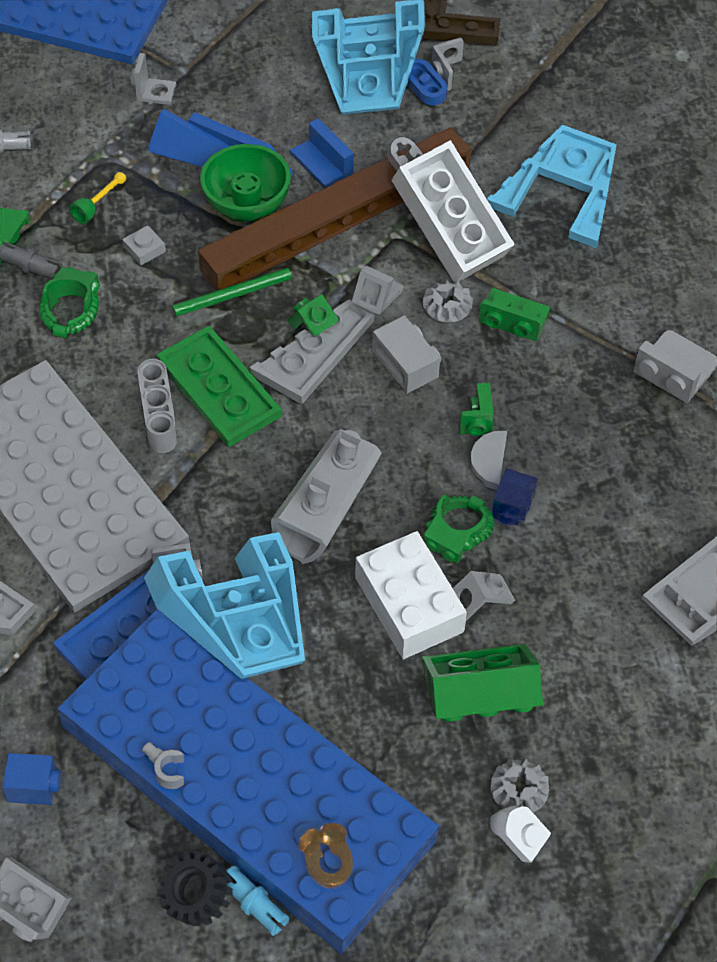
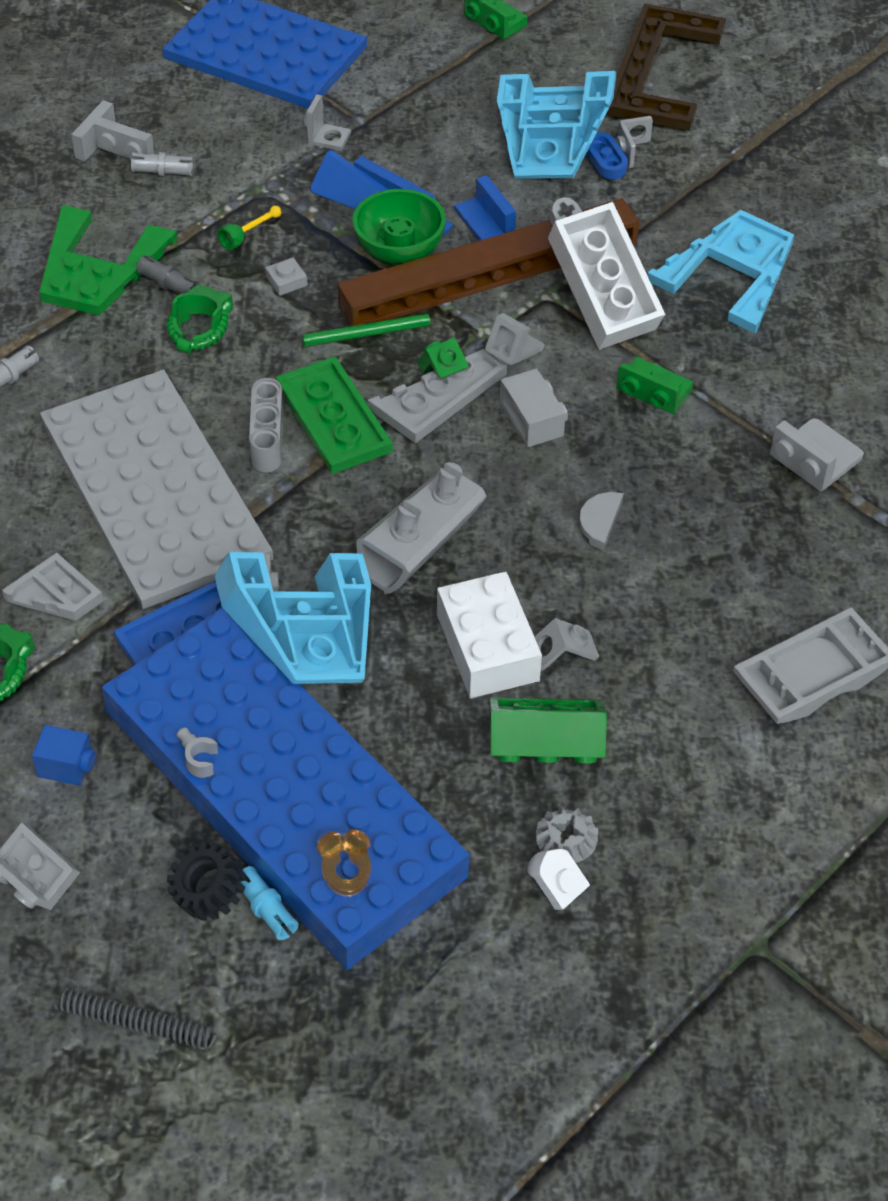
camera: 10 degrees right, 5 degrees down
(452, 310) = (590, 373): light grey gear -> none
(453, 542) = (543, 590): green piece -> none
(480, 418) = (596, 477): green bracket -> none
(514, 497) = (617, 556): clear blue window -> none

